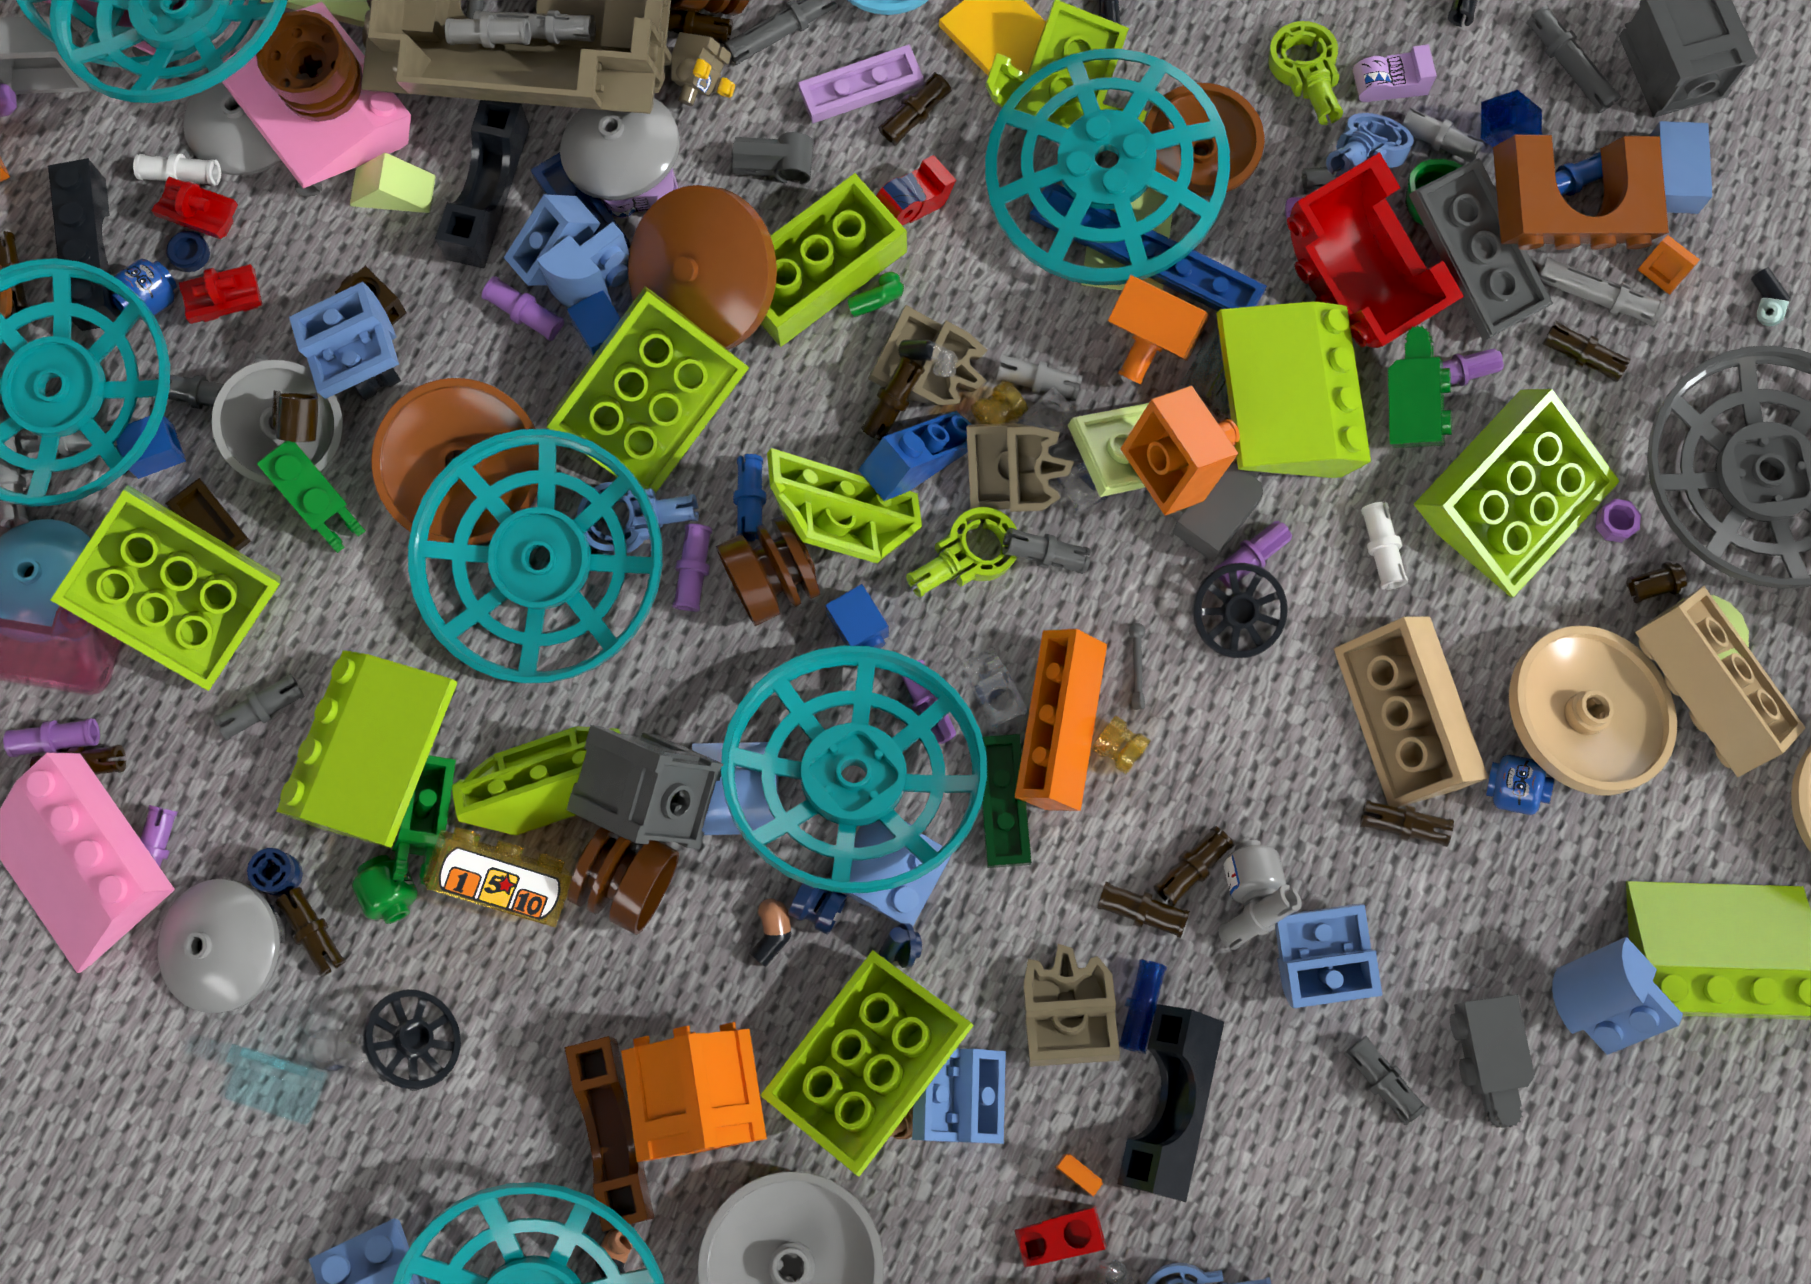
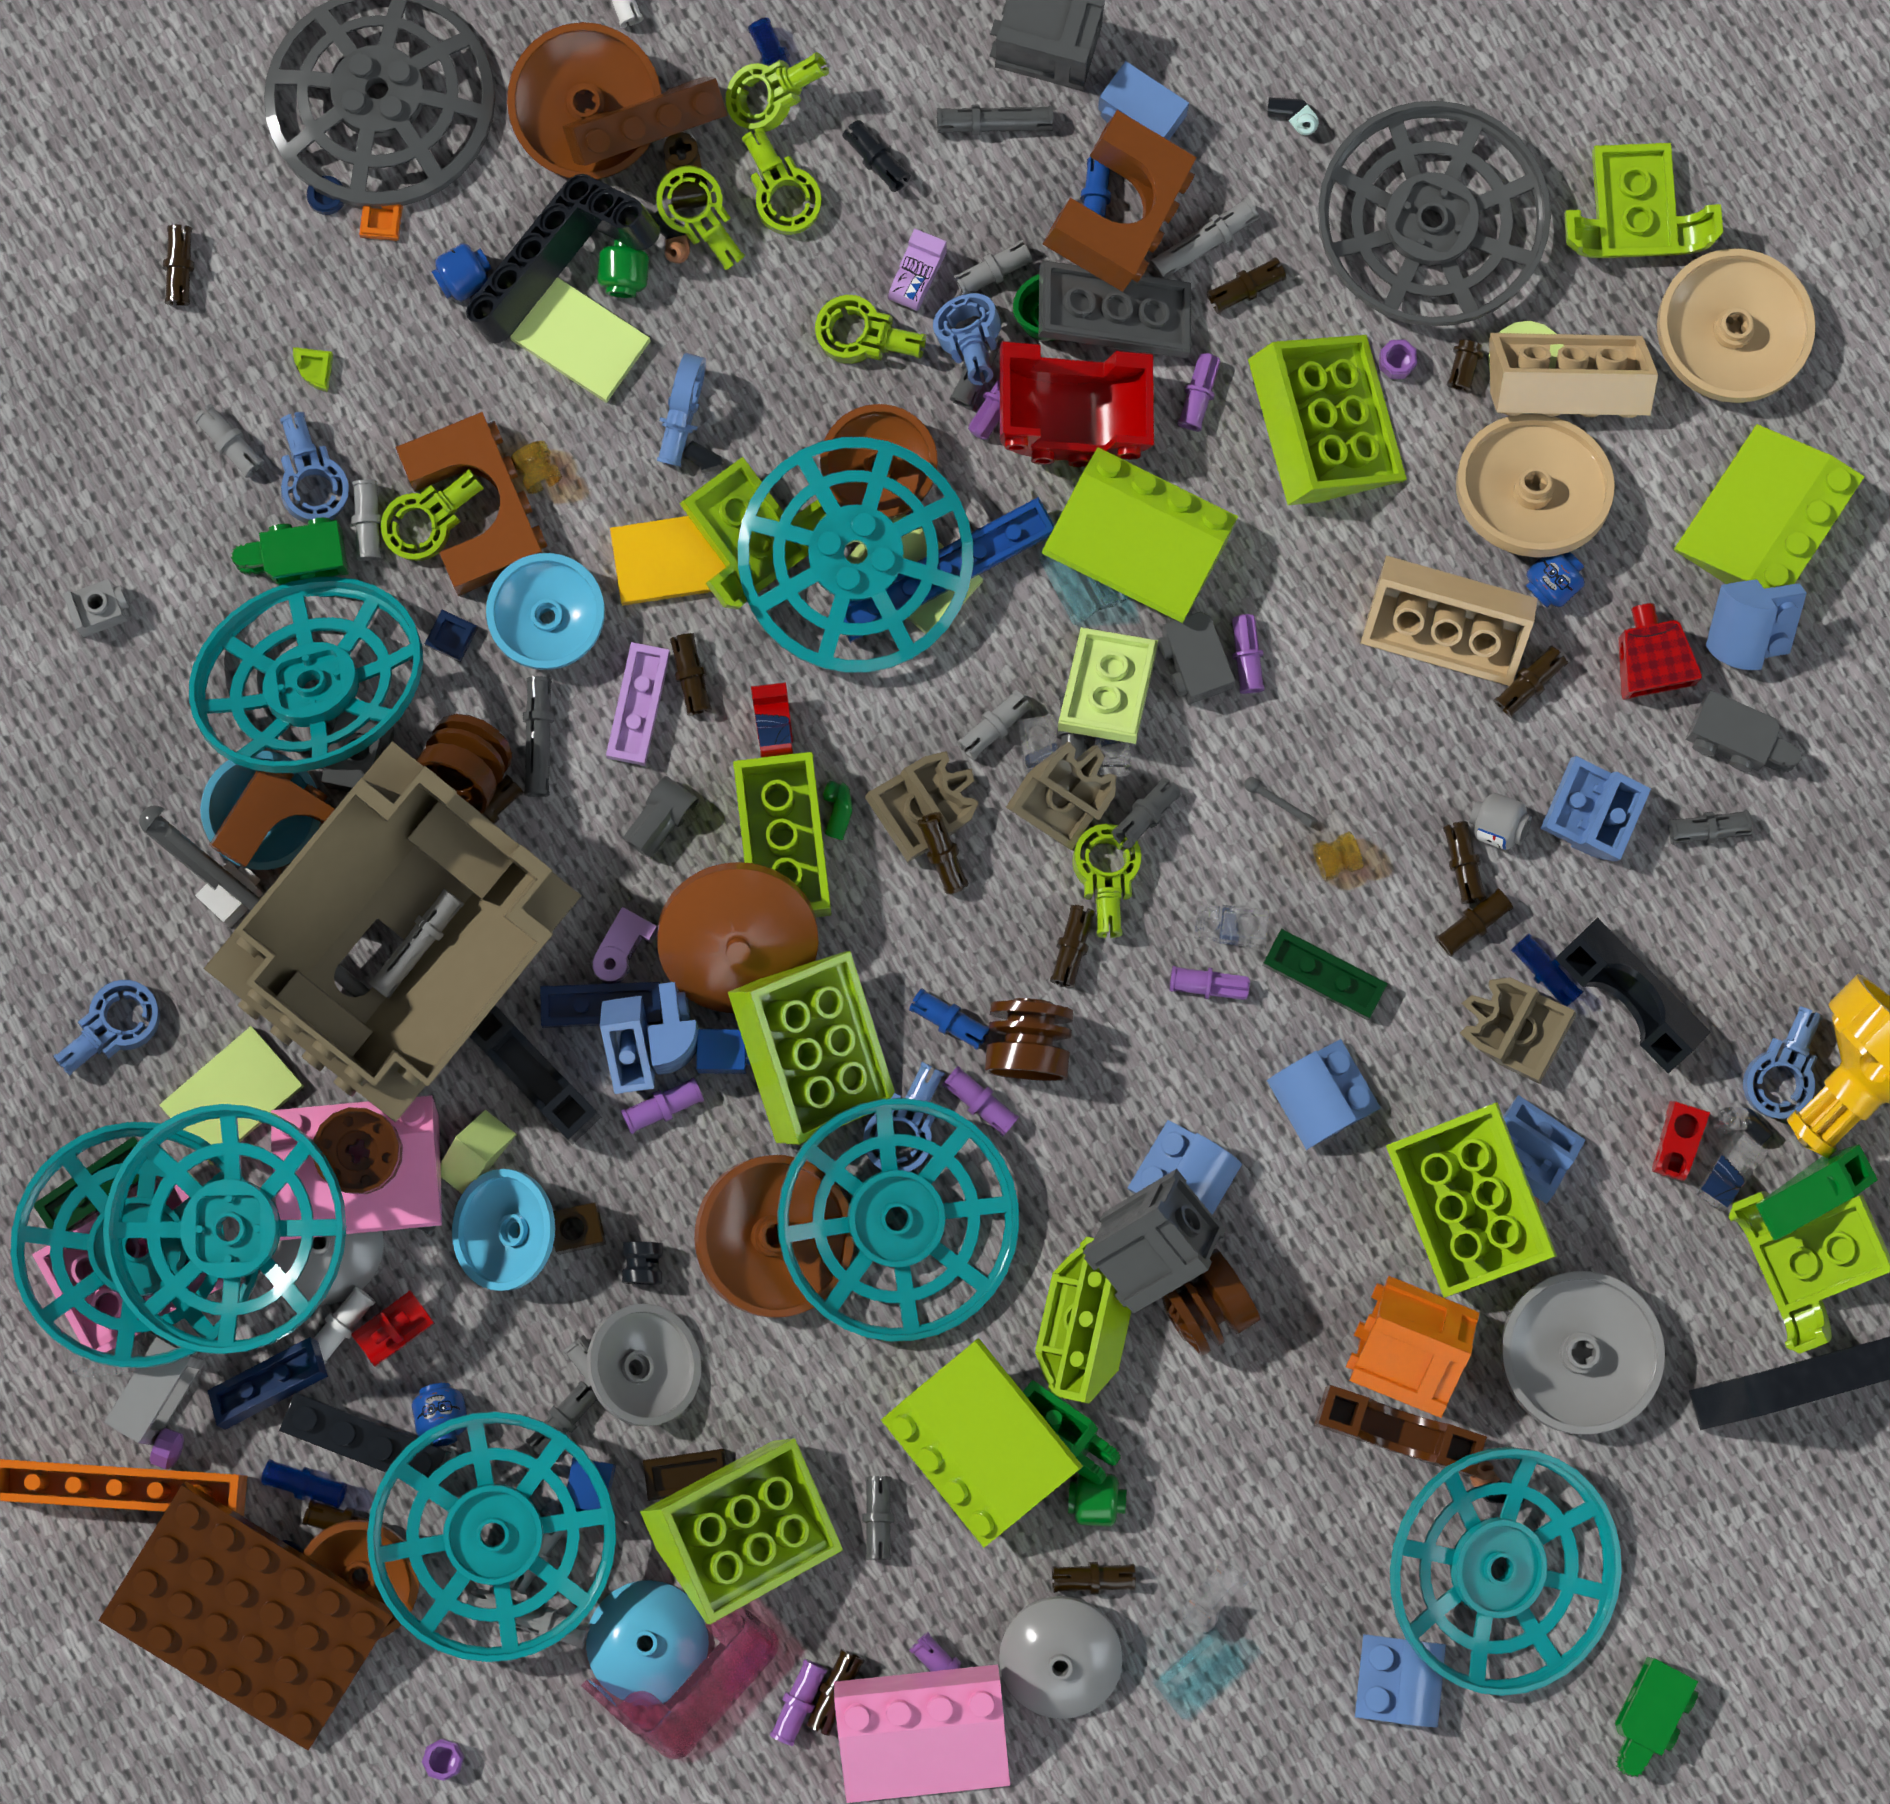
camera: 60 degrees left, 5 degrees up
(24, 221) = (304, 1483): none -> clear blue pin
(91, 139) = (267, 1383): none -> dark blue plate
(188, 251) = (421, 1358): dark blue tile -> none
(220, 293) = (489, 1350): red hips -> none
(284, 875) = (1029, 1579): dark blue wheel -> none
(295, 416) = (663, 1343): dark brown piece -> none
(307, 490) = (717, 1373): green hinge -> none
(330, 241) = (488, 1225): none -> medium azure dish
(345, 339) = (616, 1265): medium blue brick -> none
(411, 1040) = (1233, 1542): black wheel -> none
(487, 31) = (403, 985): light grey pin -> none
(498, 876) = (1150, 1399): brick -> none
(620, 161) = (595, 951): light grey dish -> none
(698, 66) = (538, 829): dark tan piece -> none
(776, 930) = (1316, 1211): arm -> none
(808, 901) = (1314, 1173): dark blue wheel -> none
(840, 508) = (1021, 949): lime wedge -> none
(858, 619) = (1111, 996): blue brick -> none
(859, 746) = (1234, 1048): teal dish -> none
(894, 562) = (1072, 946): none -> dark brown pin
(902, 946) = (1390, 1121): dark blue plate -> none
(915, 454) = (1004, 862): blue slope -> none
(930, 351) = (926, 799): arm -> none
(1001, 406) = (1002, 772): clear yellow wheel -> none
(1061, 720) = (1292, 889): orange brick -> none
(1079, 1174) = (1642, 1097): orange tile -> none
(1157, 324) = (1017, 604): orange brick -> none
(1180, 449) = (1145, 658): orange brick -> none
(1239, 610) = (1287, 695): black wheel -> none
(1259, 917) = (1537, 839): light grey pin -> none
(1384, 545) = (1305, 549): white pin -> none
(1417, 395) = (1206, 443): green hinge -> none
(1509, 116) = (1023, 210): clear blue brick -> none
(1512, 924) = (1655, 656): none -> red torso
(1668, 264) = (1218, 172): orange tile -> none

